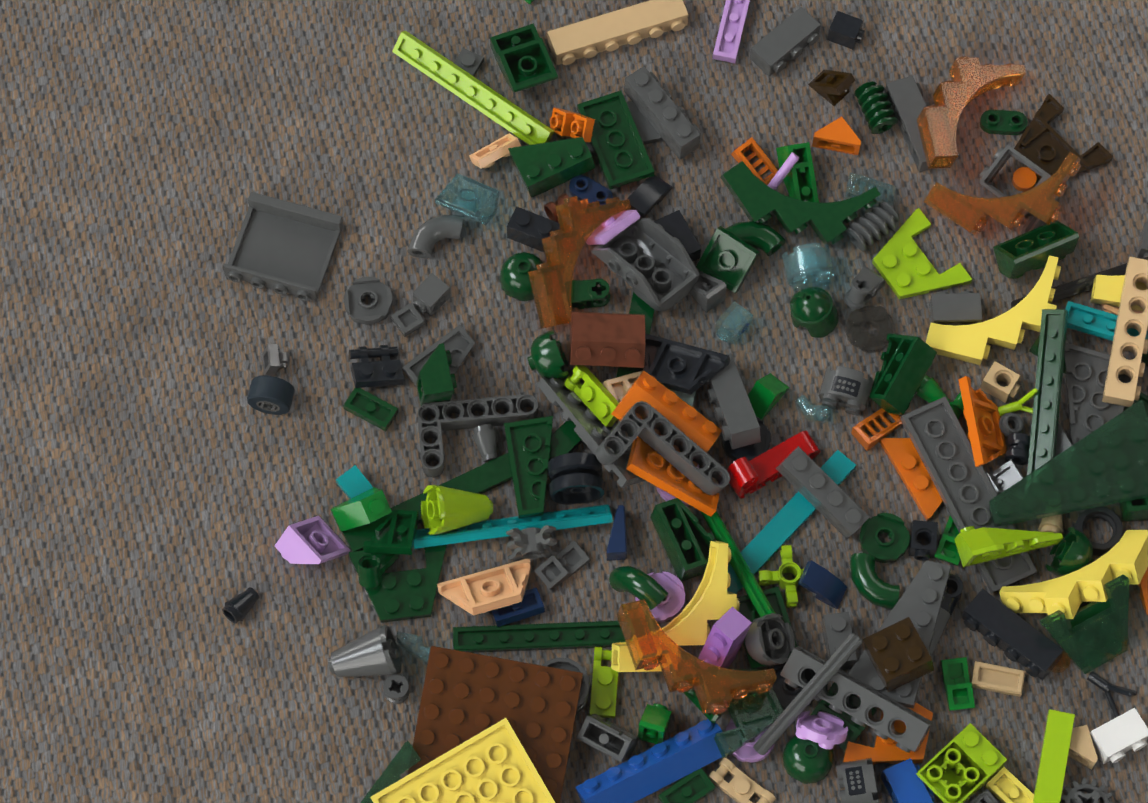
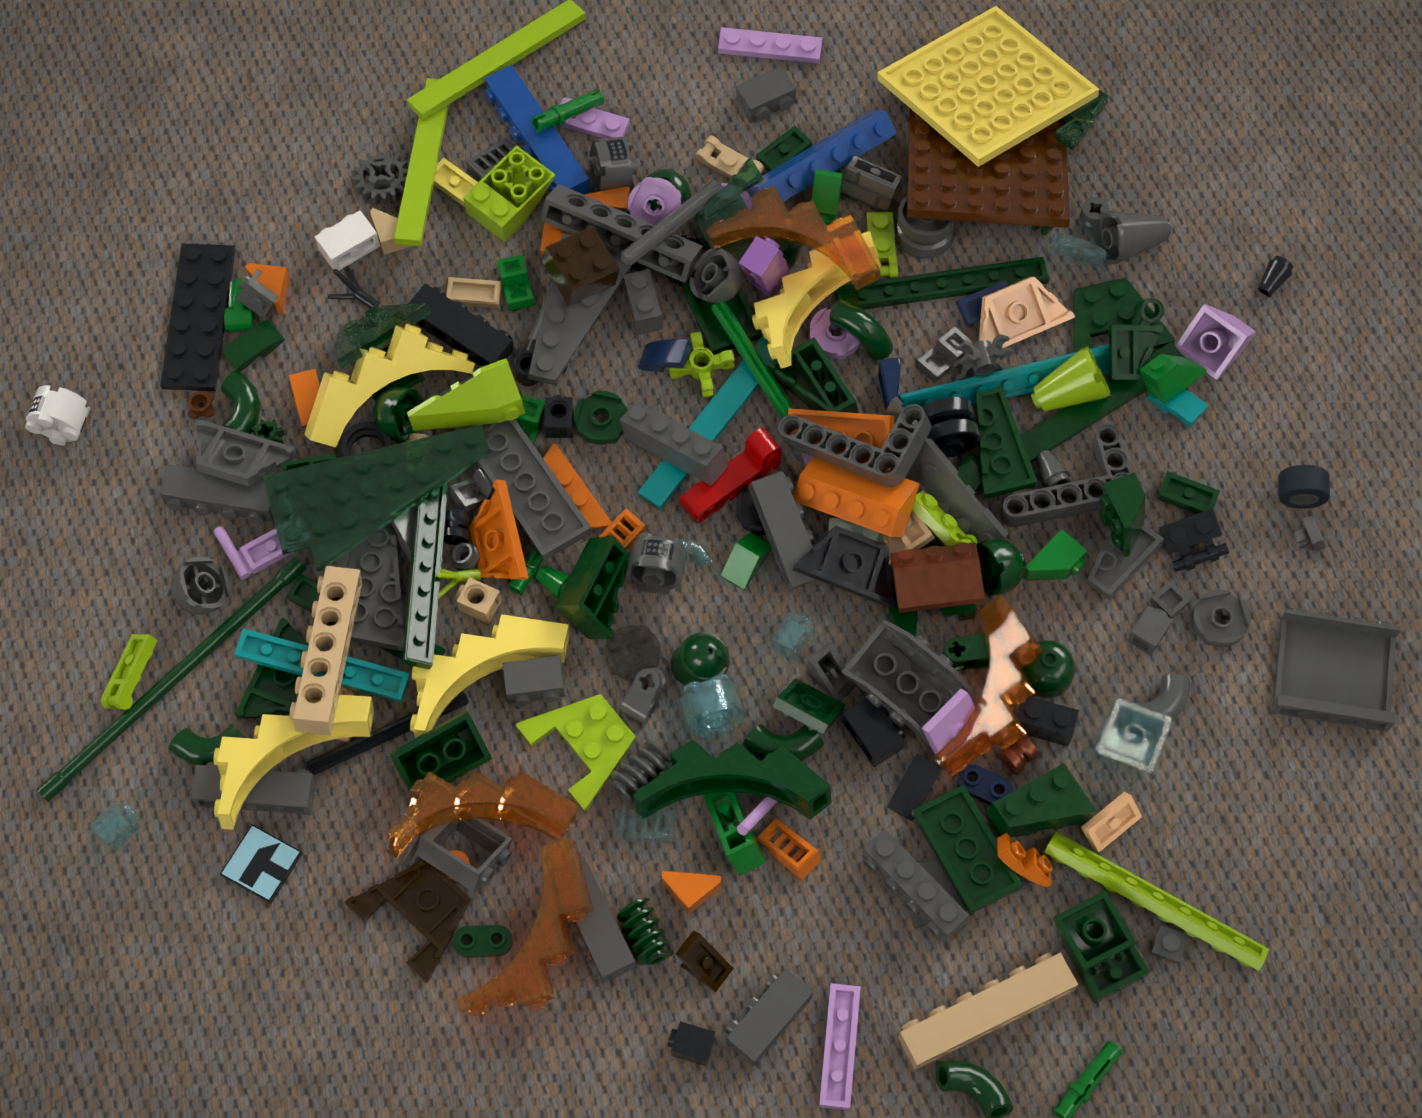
camera: 175 degrees right, 0 degrees up
(498, 362) = (1057, 559): none -> green slope
(869, 584) = (613, 364): dark green cylinder -> none

